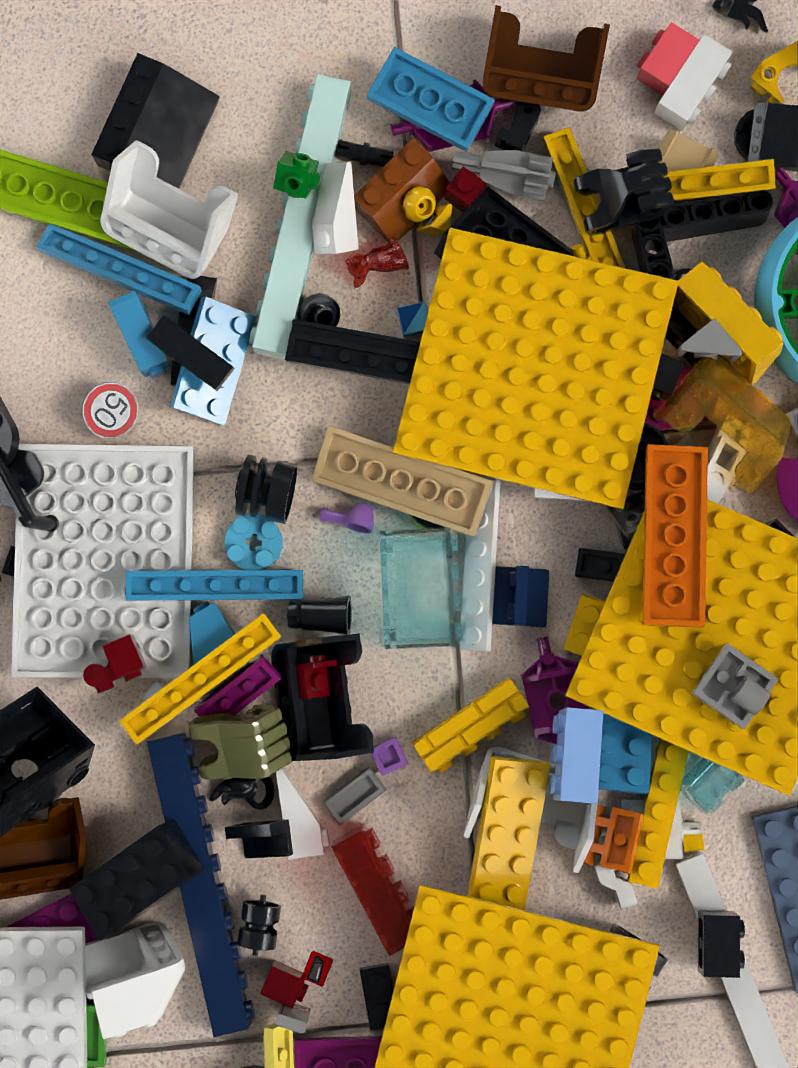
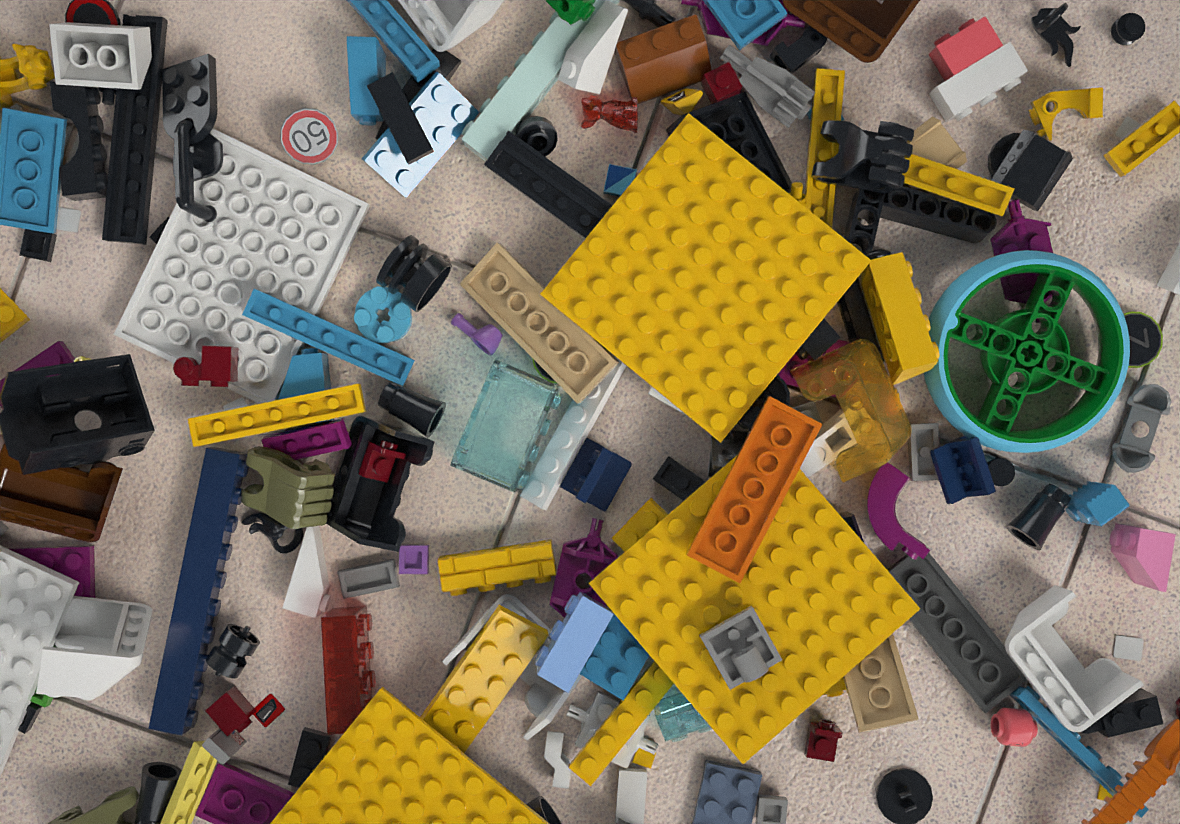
camera: 20 degrees right, 5 degrees up
(136, 879) = (142, 563): black brick -> none
(263, 838) = (269, 578): black panel -> none
(412, 201) = (670, 71): yellow plate -> none
(620, 840) = (579, 727): orange plate -> none
(711, 342) = (872, 330): light grey slope -> none

